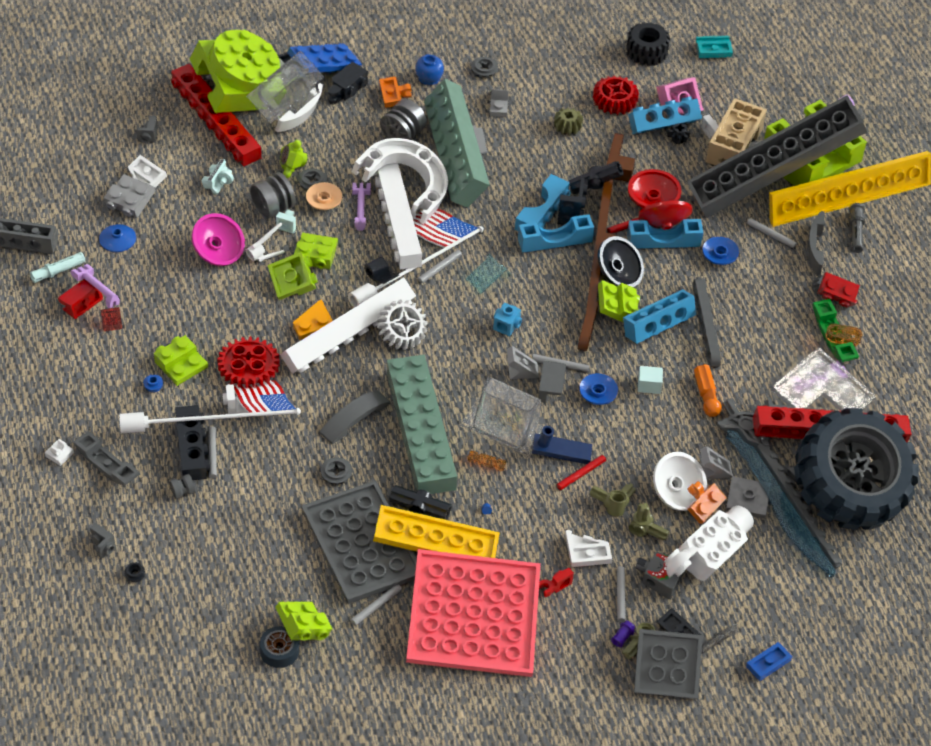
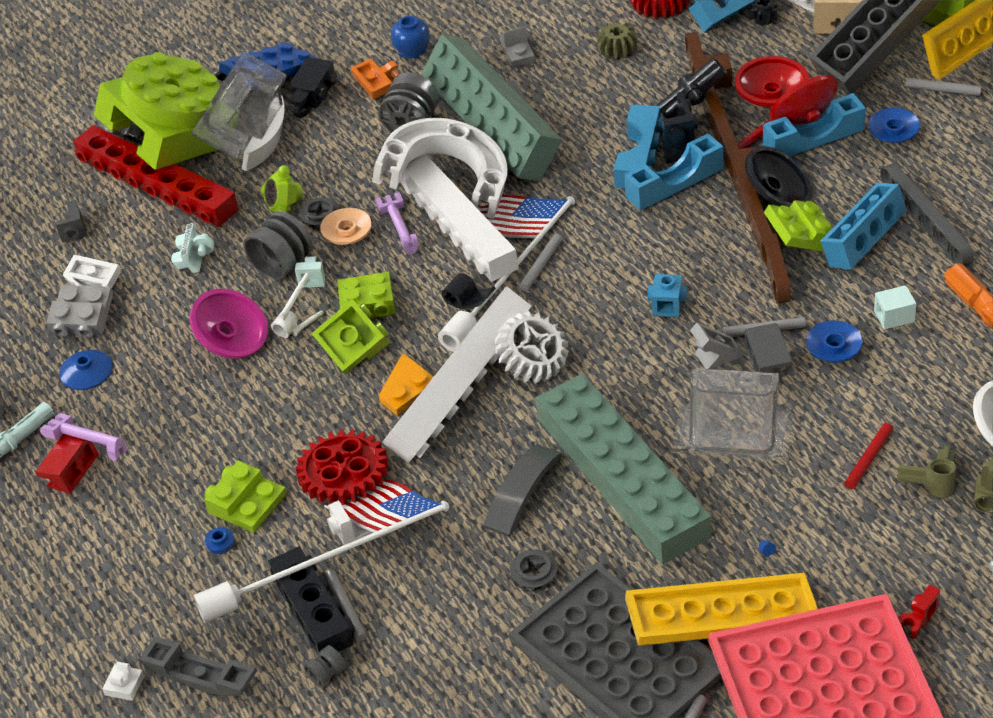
camera: 10 degrees left, 5 degrees down
(111, 319) = (123, 475): clear red slope -> none
(420, 502) = (672, 570): black piece -> none
(484, 62) = (471, 14): dark grey gear -> none
(486, 274) = (609, 250): clear light blue piece -> none
(486, 460) = (734, 484): clear orange axle -> none
(560, 448) = (828, 433): dark blue piece -> none
(587, 551) = (936, 555): white wing -> none

